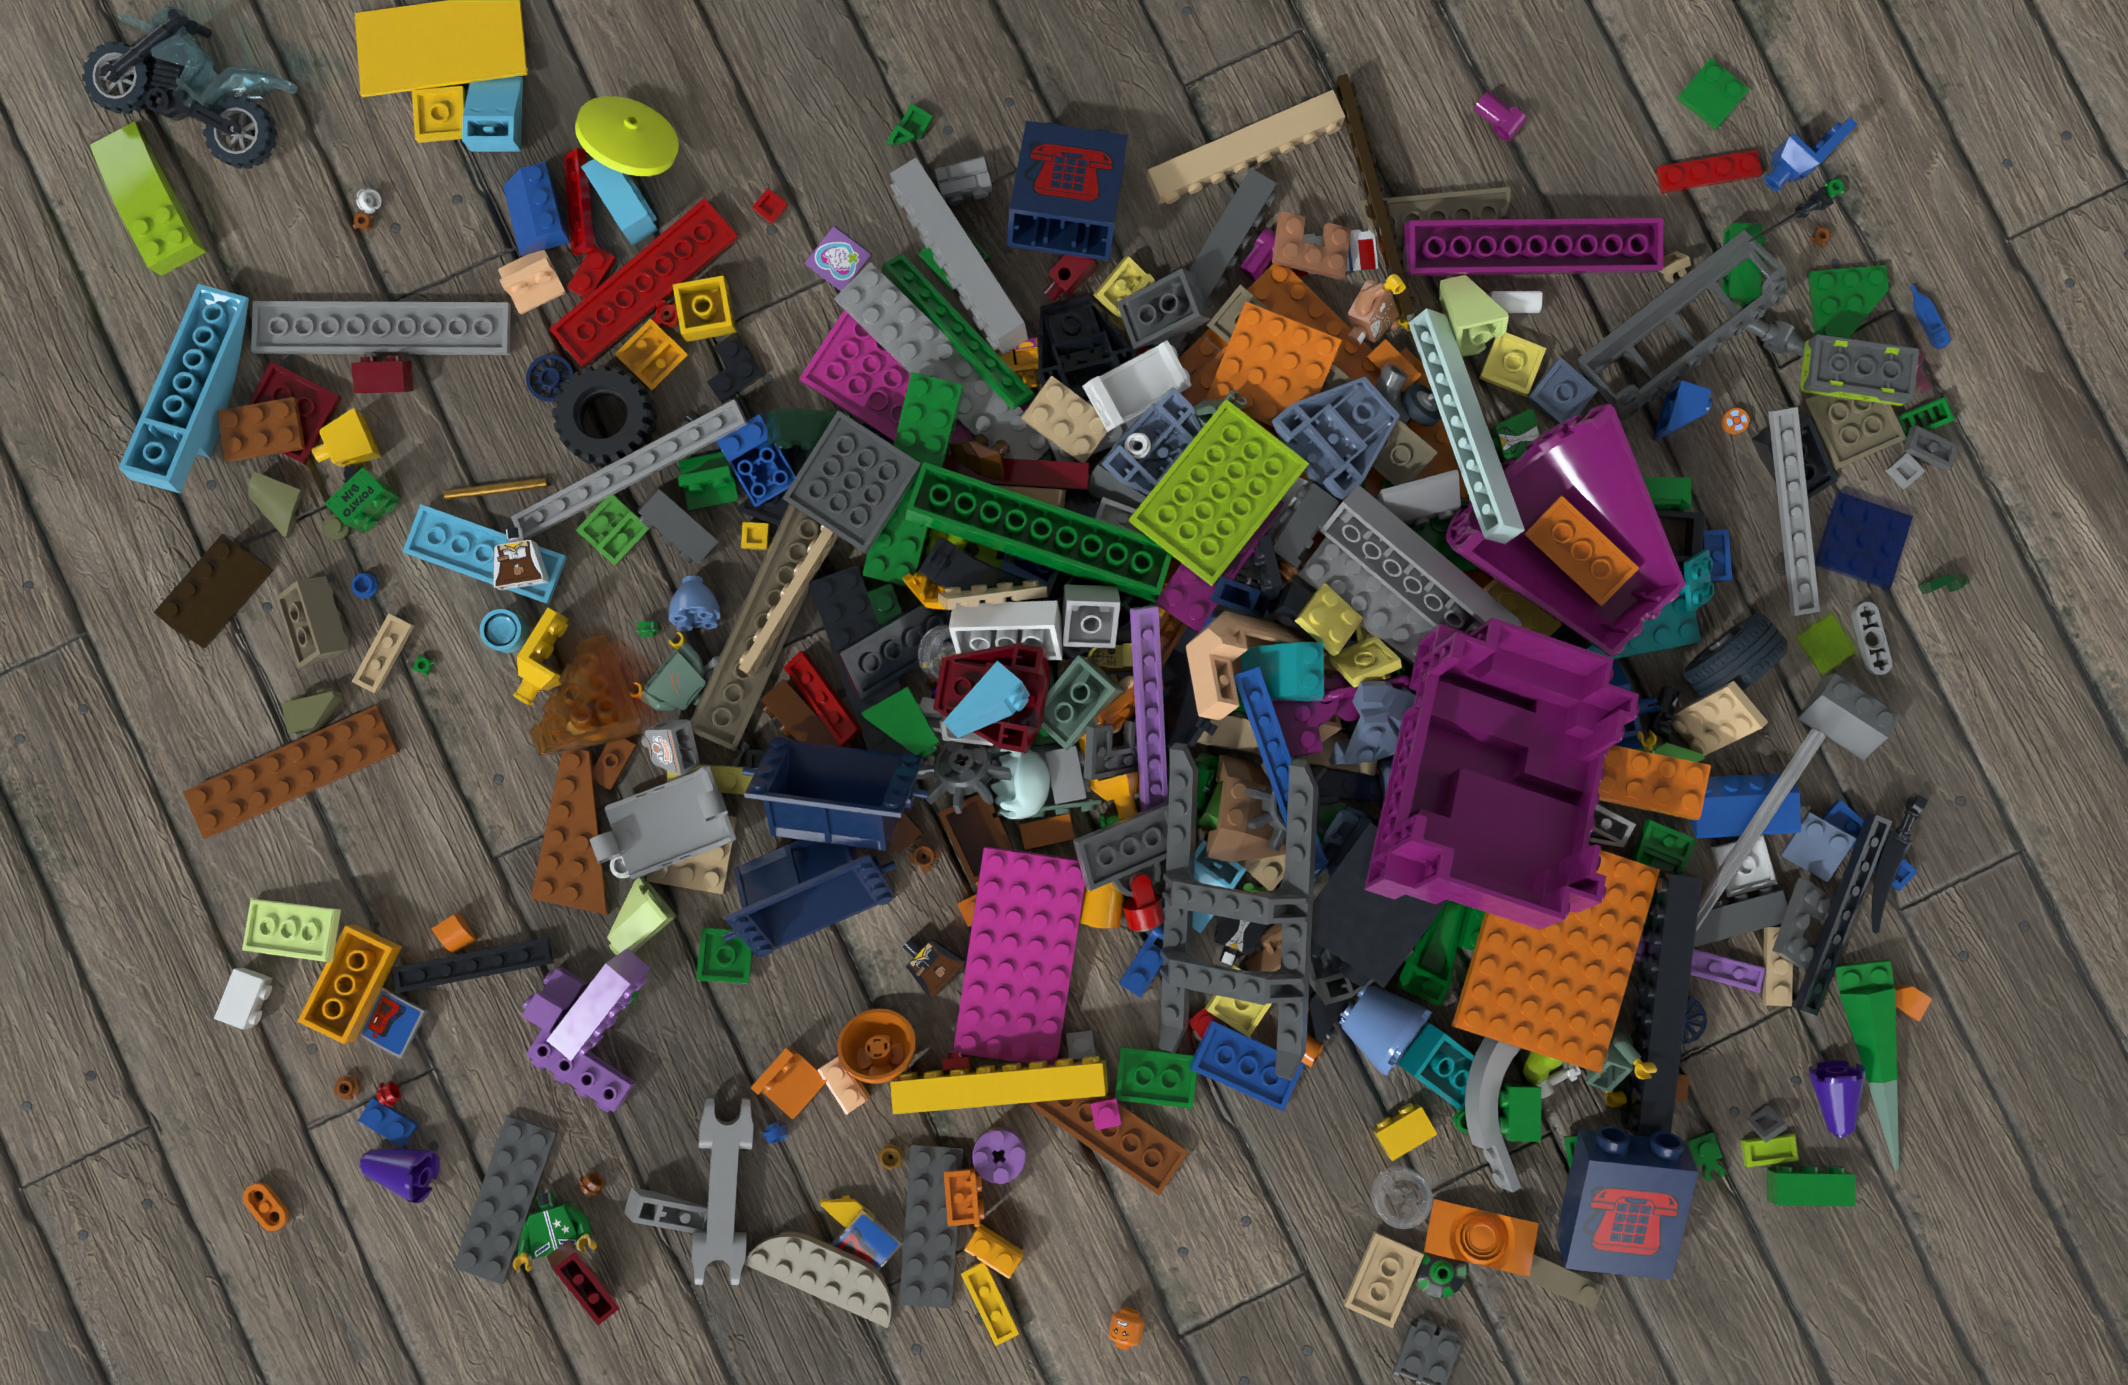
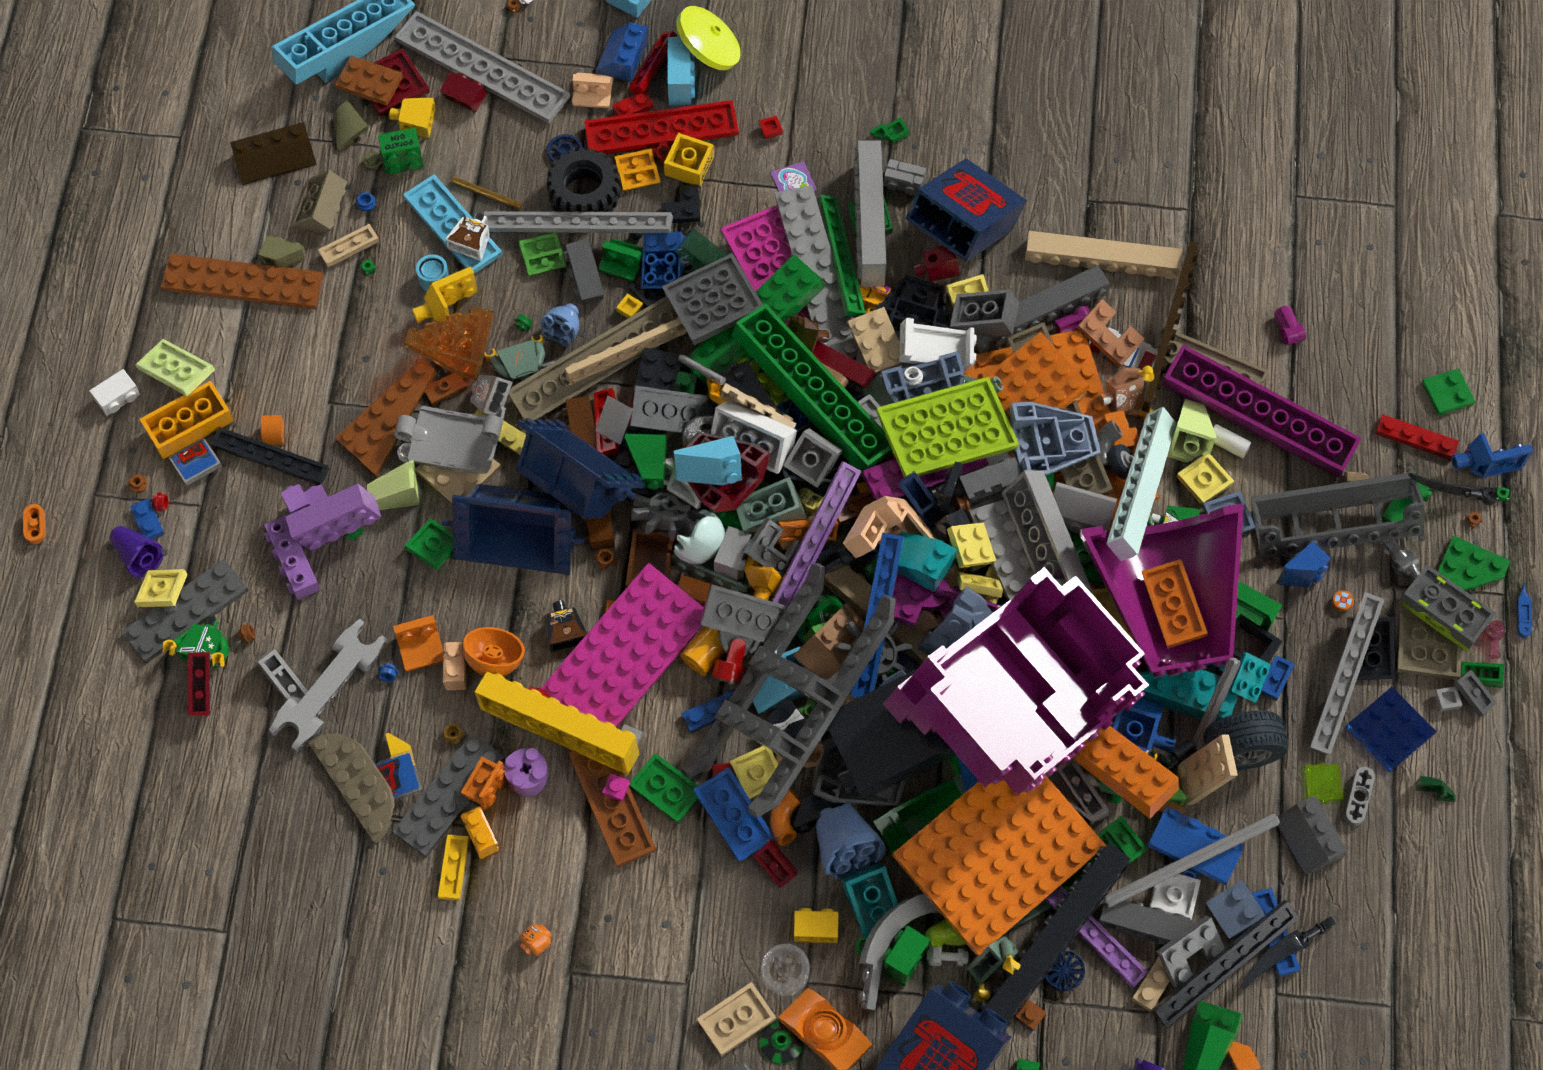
camera: 35 degrees right, 20 degrees down
(462, 1196) = (161, 588): none -> light yellow plate
(835, 698) = (614, 419): none -> white sticker
(893, 576) = (701, 369): none -> light grey bar
(1321, 1088) = (775, 863): none -> dark red slope
(1683, 636) = (1216, 701): none -> light grey axle

